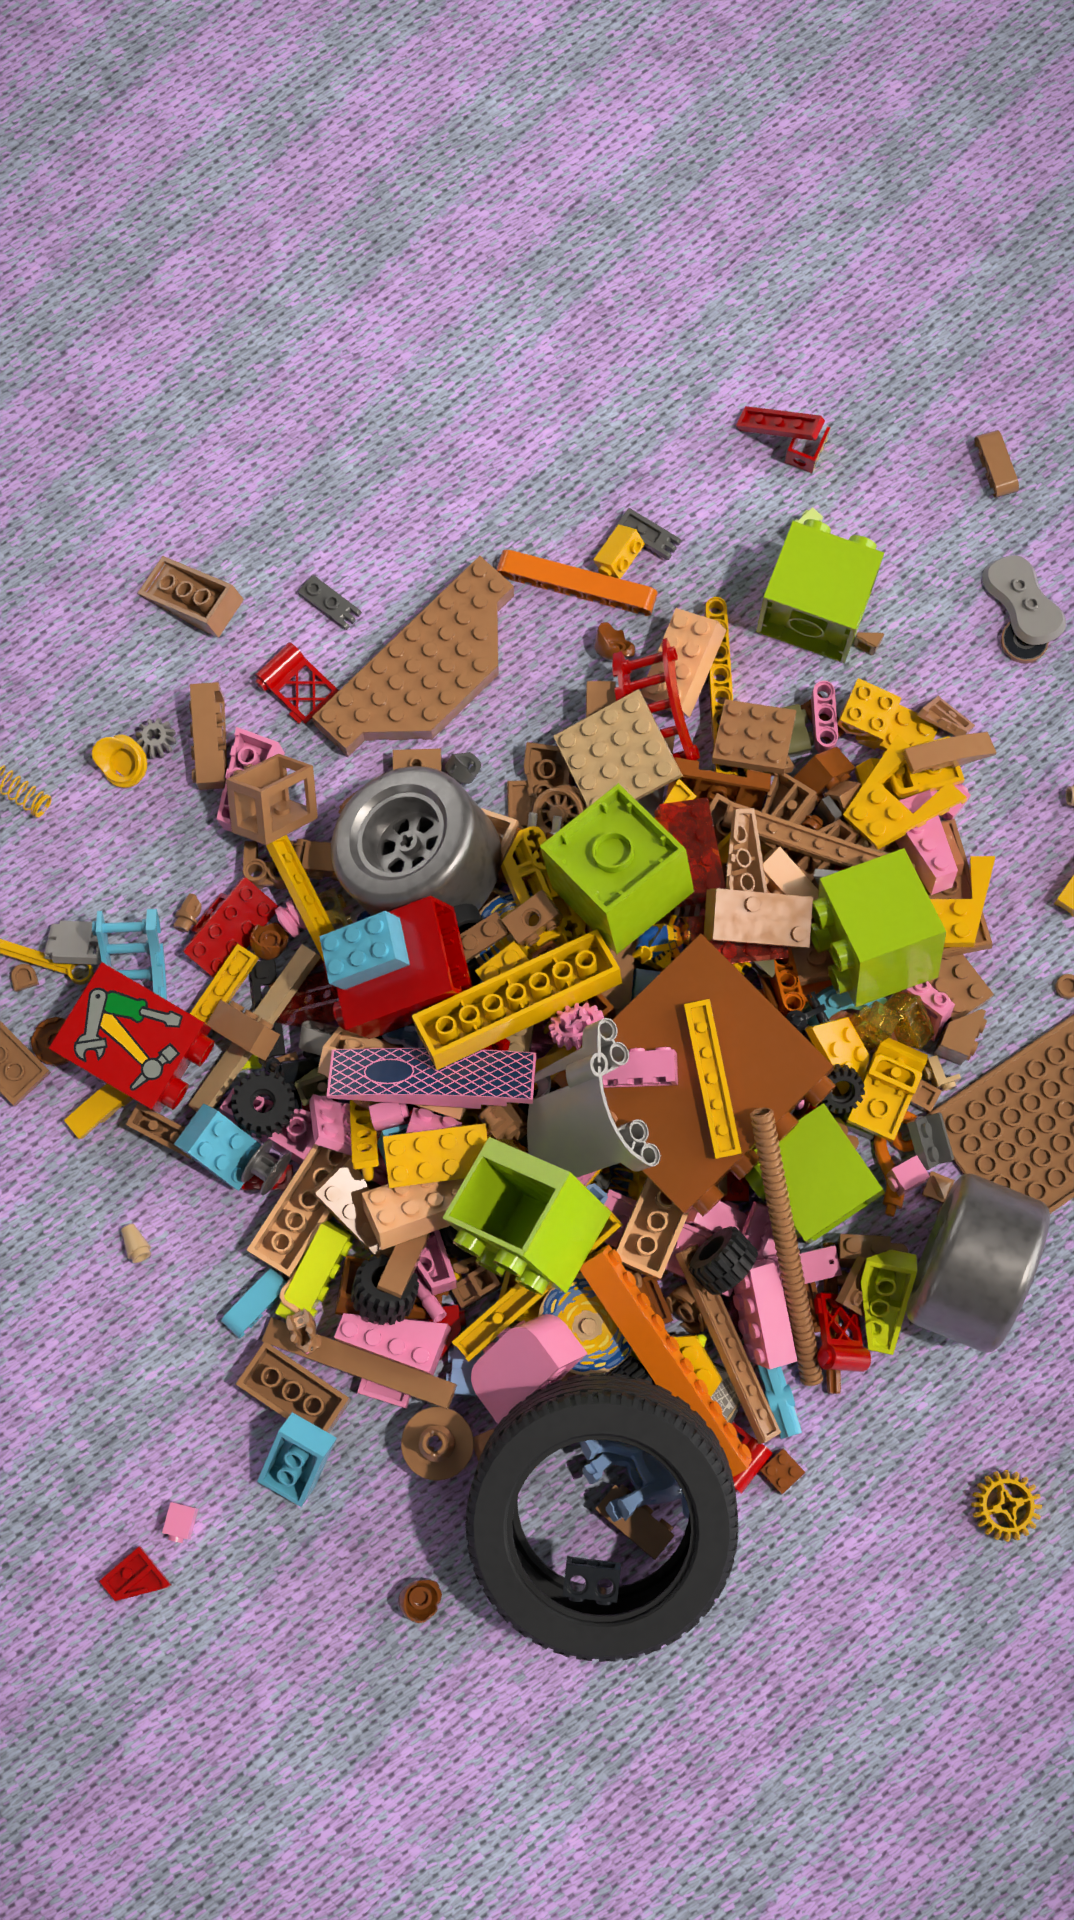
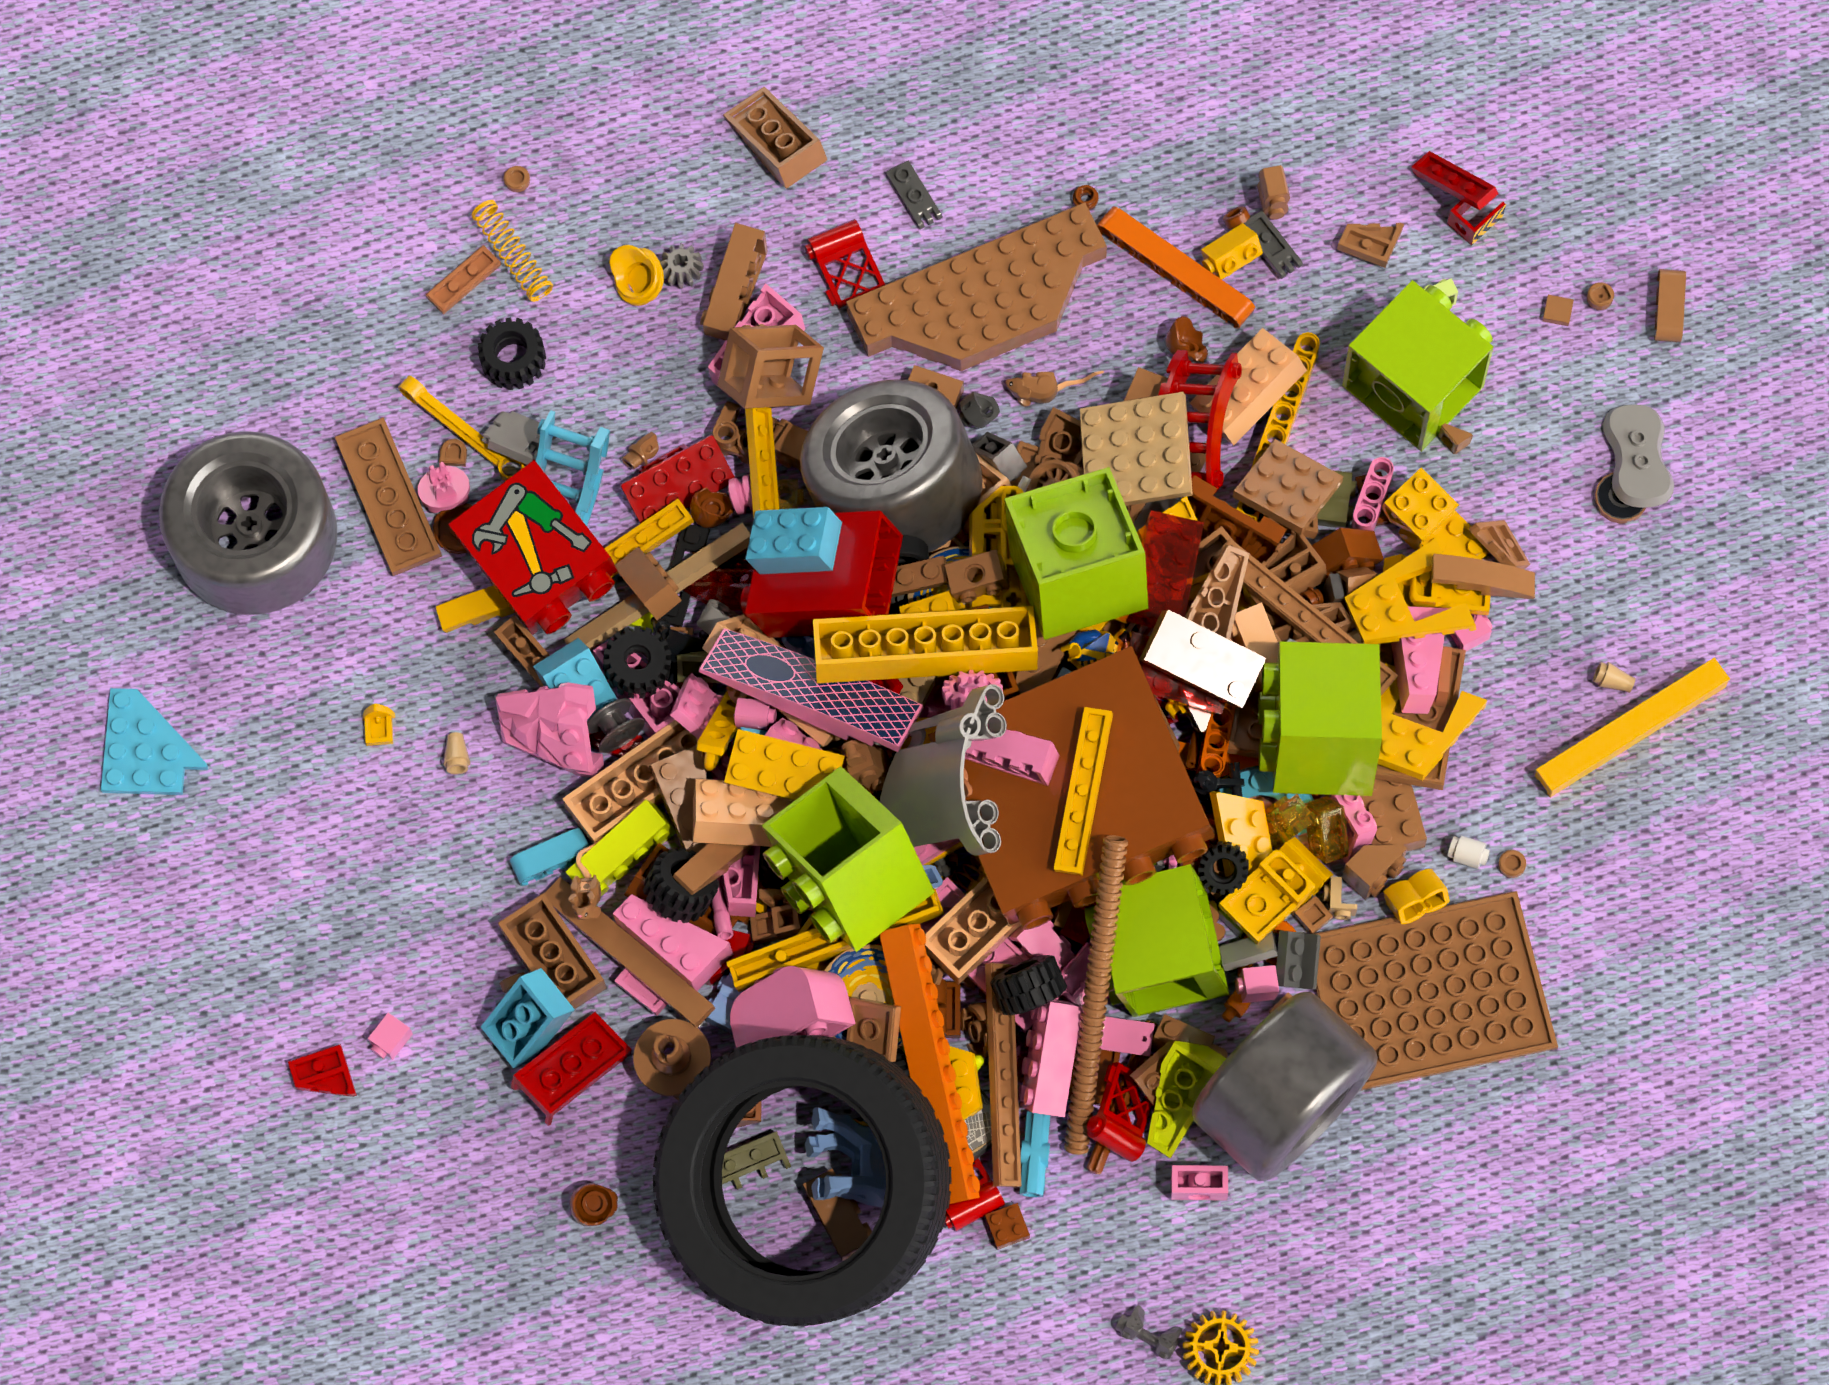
camera: 25 degrees right, 5 degrees down
(28, 1012) = (443, 488): none -> bright pink plate
(47, 887) = (511, 372): none -> black tyre
(56, 1245) = (378, 725): none -> yellow tile
(211, 1189) = (552, 726): none -> bright pink wedge
(269, 1428) = (507, 983): none -> medium nougat tile
(350, 1484) = (571, 1065): none -> red plate
(475, 544) = (1086, 190): none -> dark orange plate
(499, 800) = (1000, 455): none -> flat silver brick
(506, 729) = (1041, 387): none -> medium nougat animal
(541, 1499) = (752, 1157): none -> olive hinge
(592, 1572) = (764, 1218): black brick -> none
(606, 1350) = (875, 1026): none -> medium nougat tile
(609, 521) = (1236, 217): none -> dark orange tile
(633, 488) = (1273, 192): none -> medium nougat brick
(729, 501) = (1370, 242): none -> medium nougat wing
(884, 1152) = (1247, 952): none -> light grey tile
(906, 501) = (1558, 310): none -> medium nougat tile
(925, 1516) = (1132, 1327): none -> flat silver piece
(929, 1368) = (1199, 1182): none -> bright pink brick
(936, 477) = (1600, 296): none -> medium nougat tile
(1003, 1046) = (1416, 896): none -> yellow brick
(1029, 990) = (1468, 851): none -> white brick

